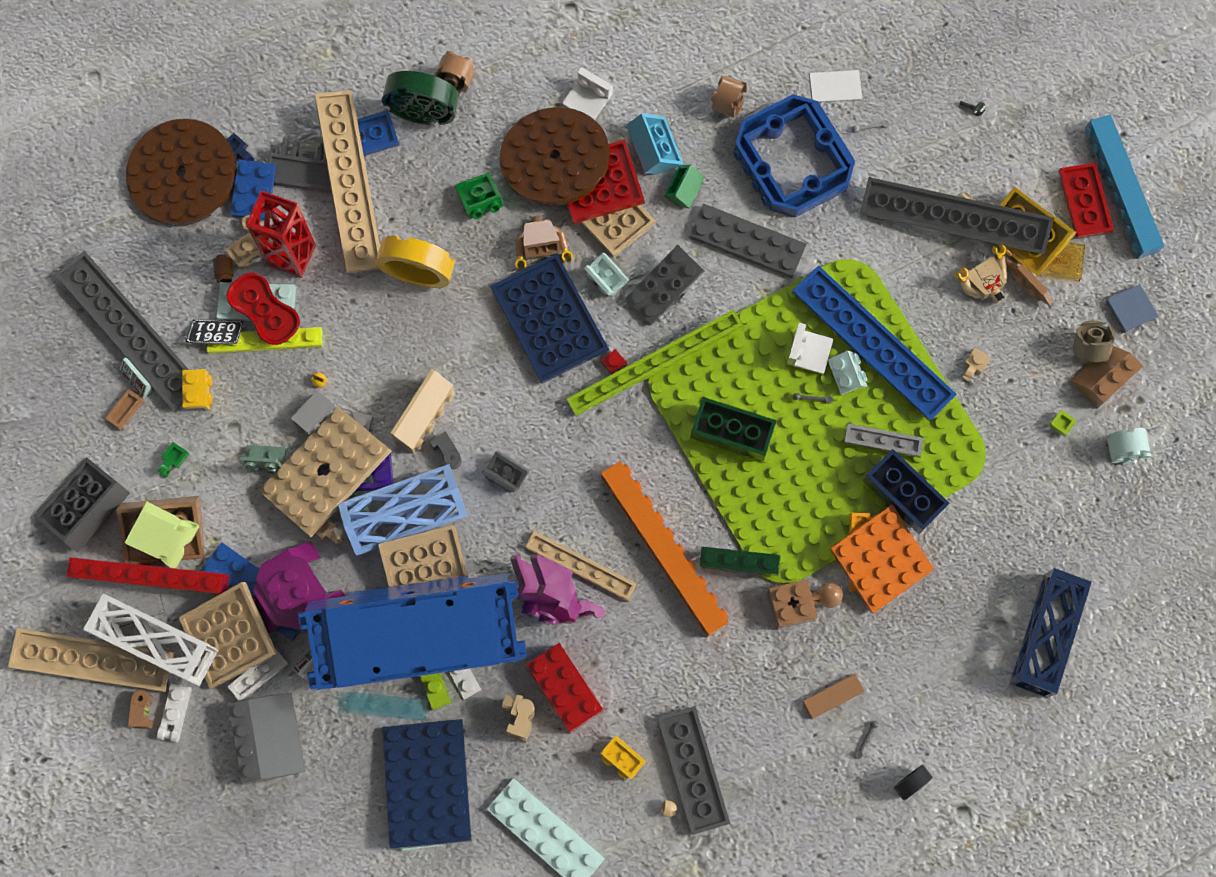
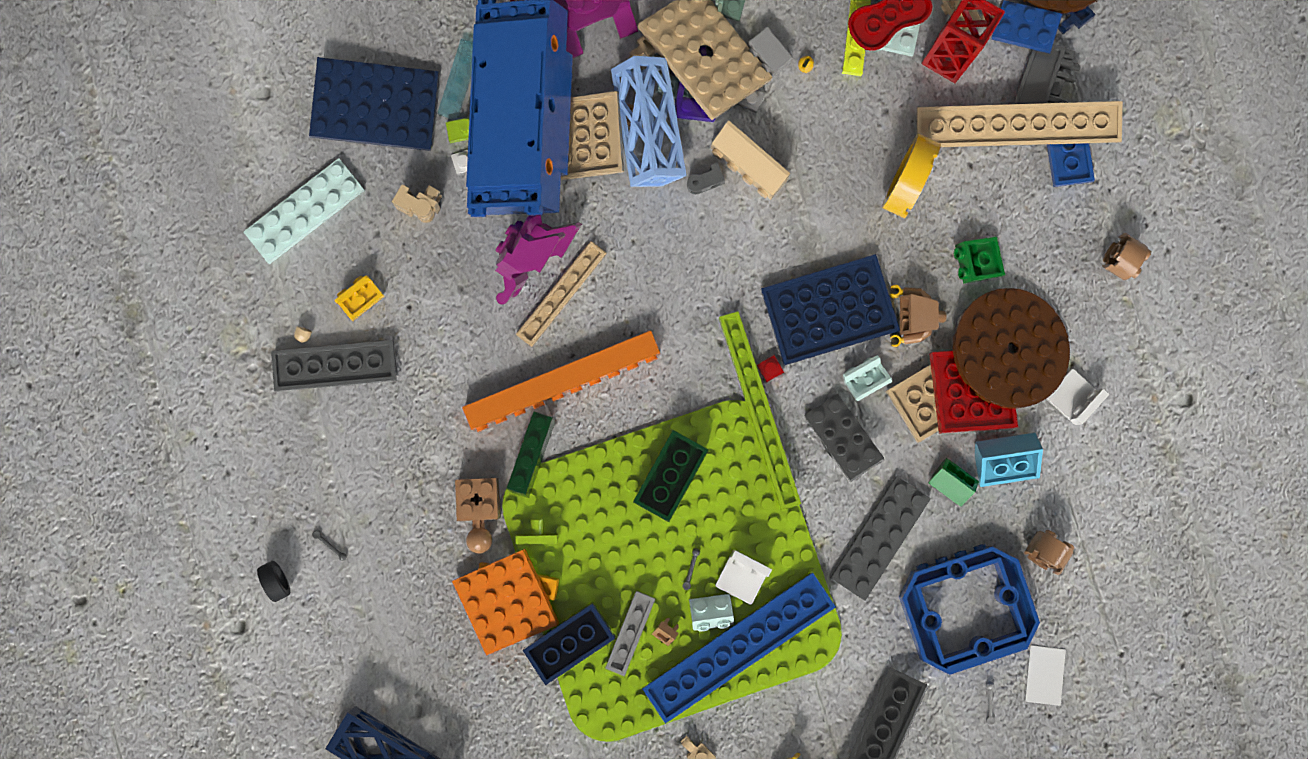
camera: 95 degrees right, 10 degrees up
(420, 97) = (1099, 212): dark green brick -> none
(505, 472) = (671, 234): dark grey bracket -> none
(564, 688) = (439, 253): red brick -> none
(814, 541) = (536, 535): none -> lime tile
(833, 696) = (378, 522): medium nougat tile -> none
(876, 408) = (666, 633): none -> medium nougat tile

